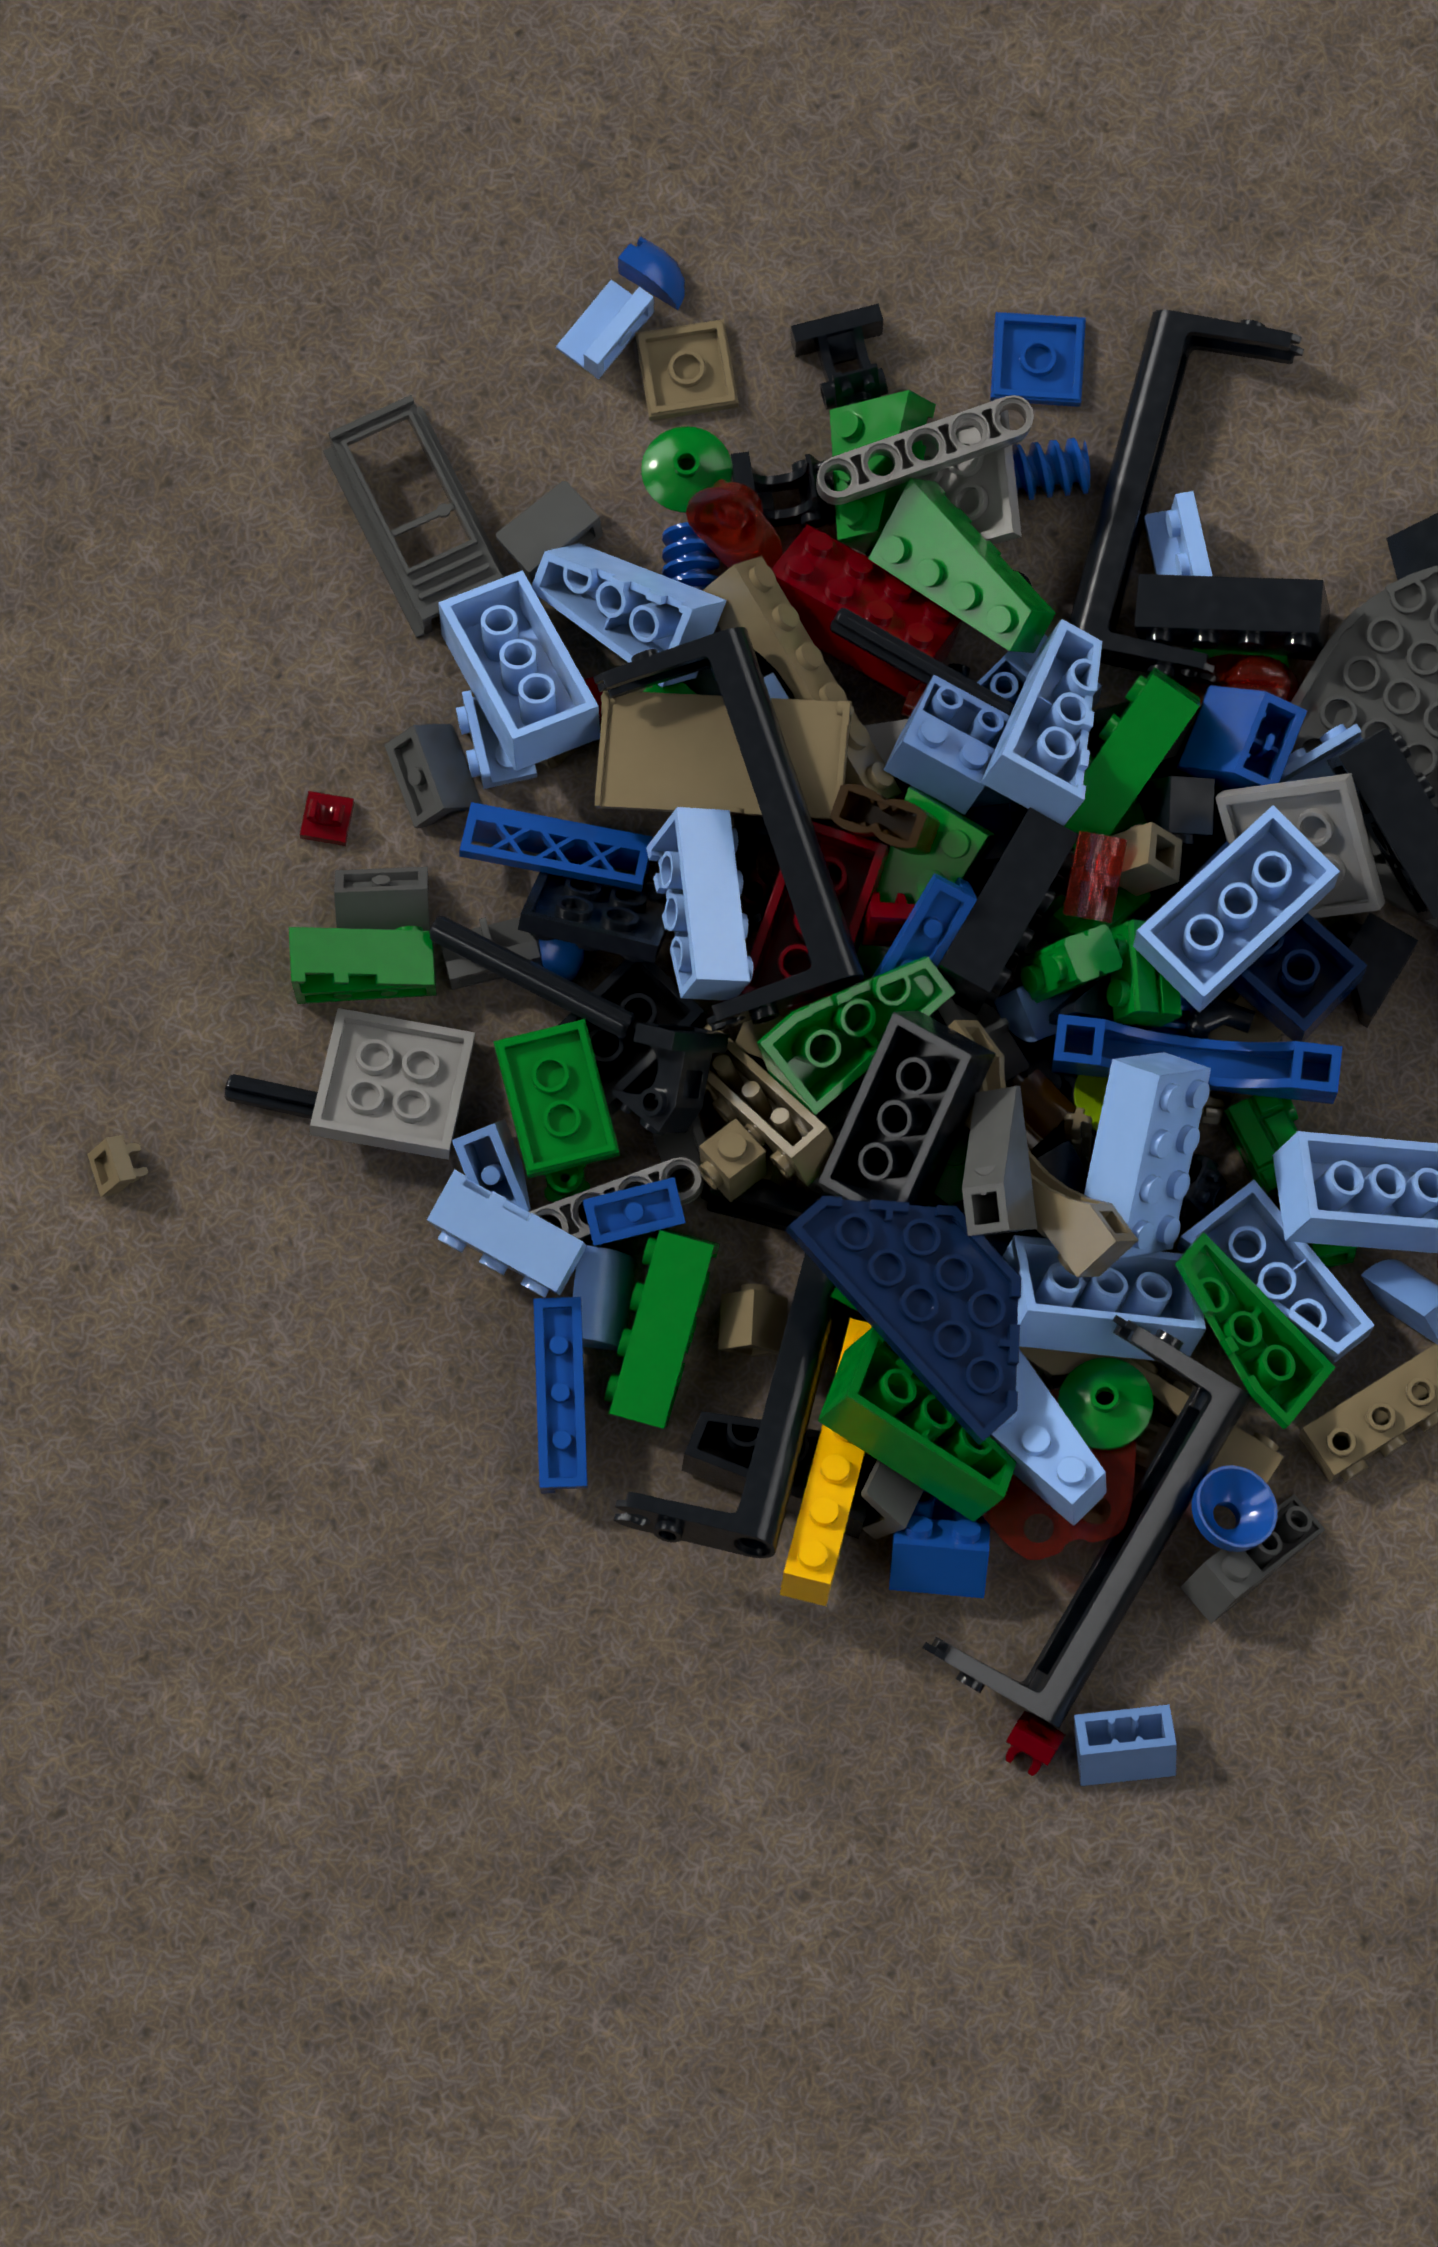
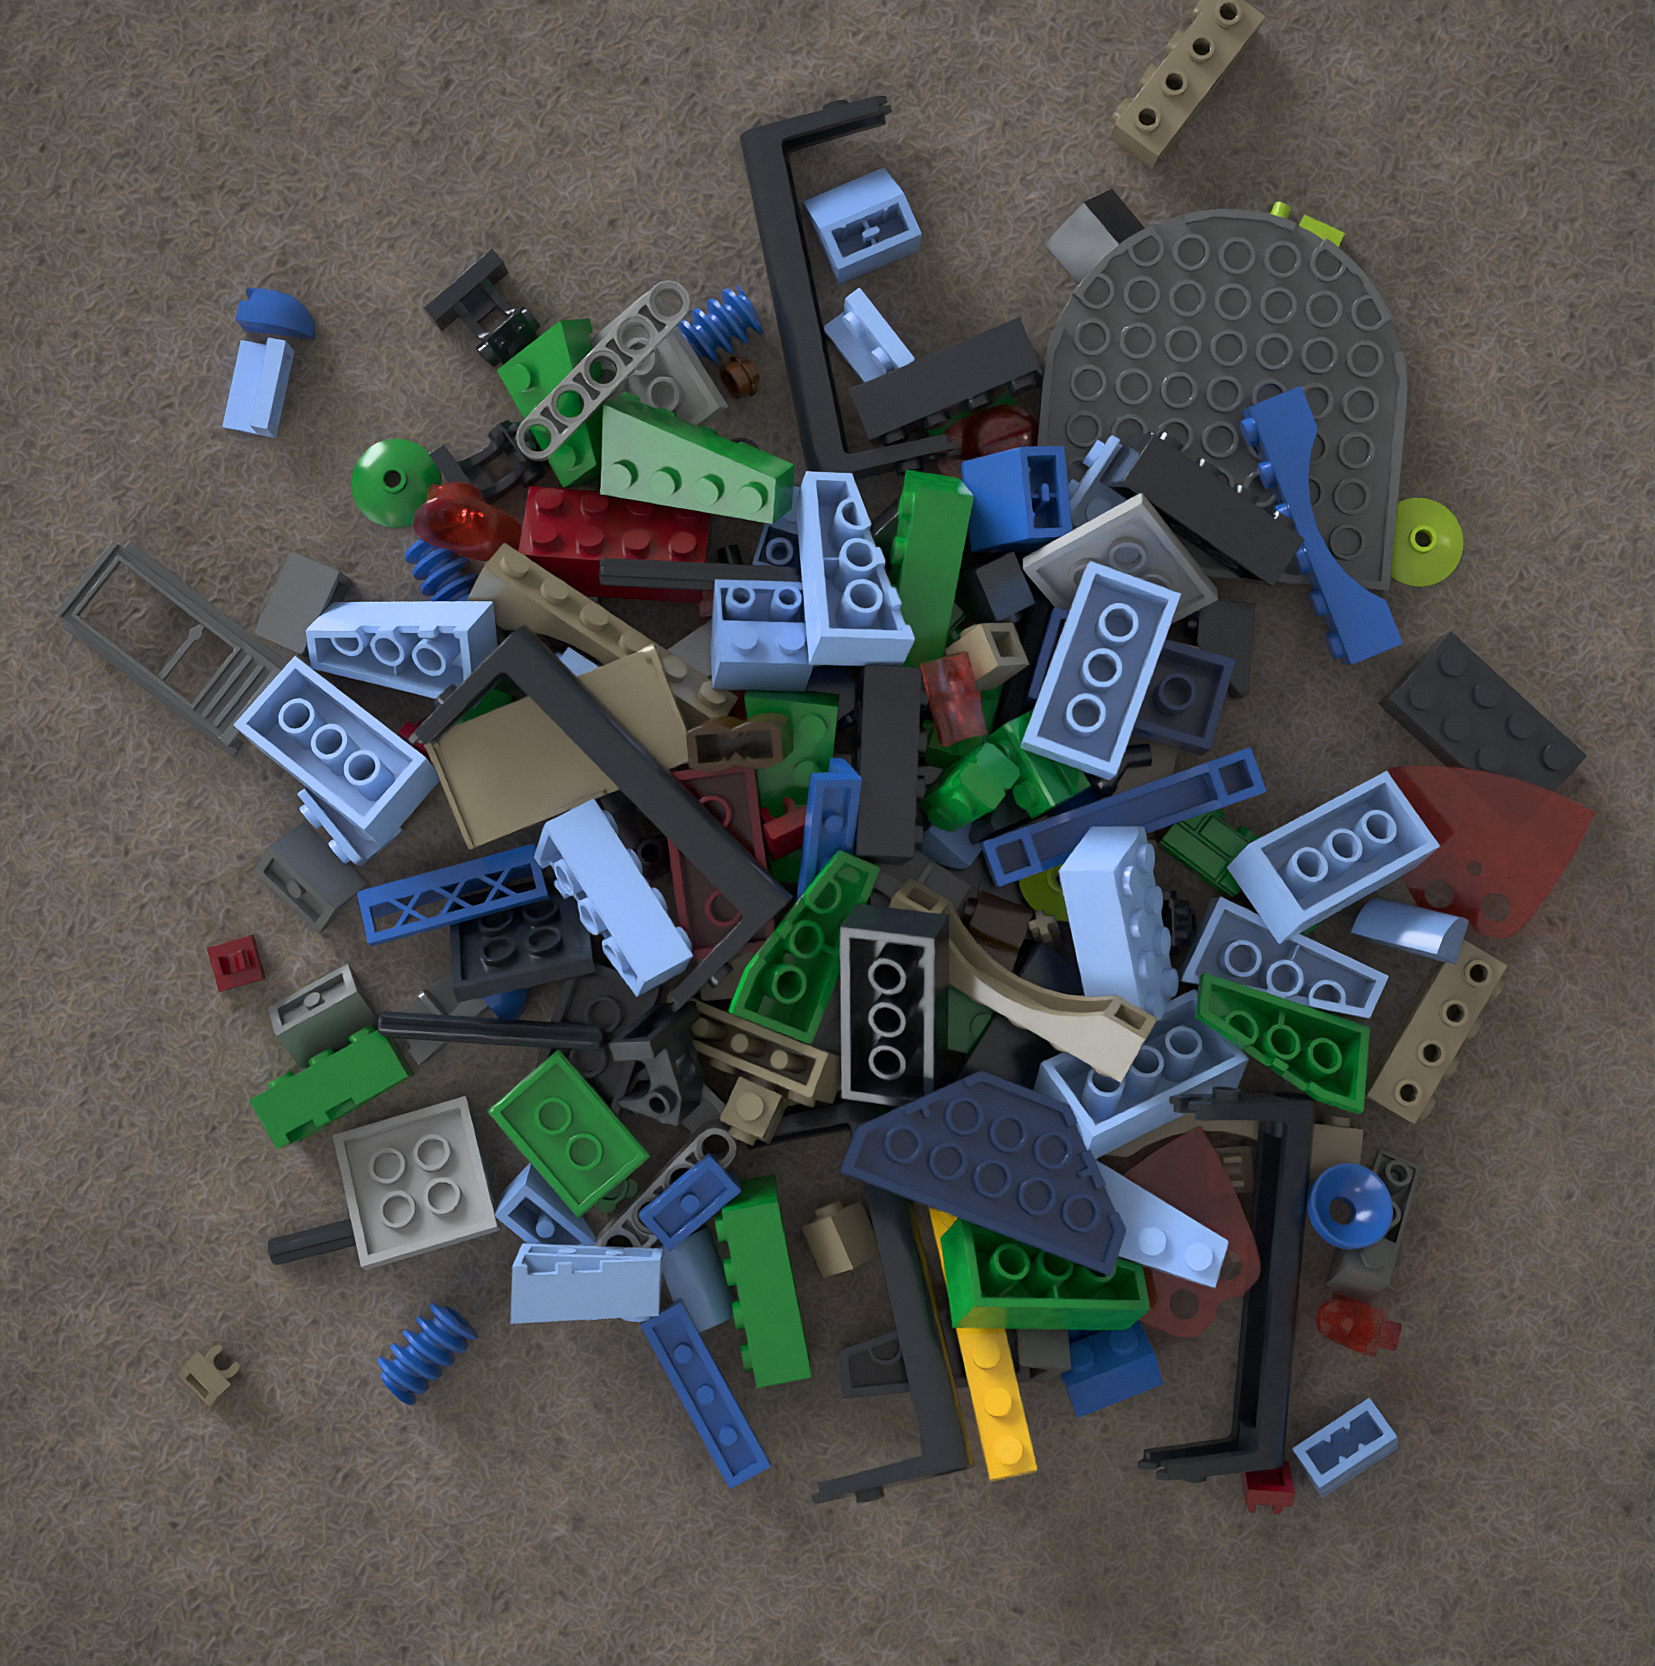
camera: 30 degrees left, 10 degrees up
(323, 1237) = (425, 1353): none -> blue piece
(686, 370) = (350, 391): dark tan tile -> none
(997, 1166) = (1003, 1020): dark grey slope -> none
(1038, 358) = (658, 228): blue tile -> none
(1046, 522) = (739, 377): none -> reddish brown plate
(1111, 1424) = (1194, 1188): green dish -> none
(1188, 1628) = (1357, 1325): none -> clear red hips
(1226, 443) = (863, 225): none -> medium blue slope

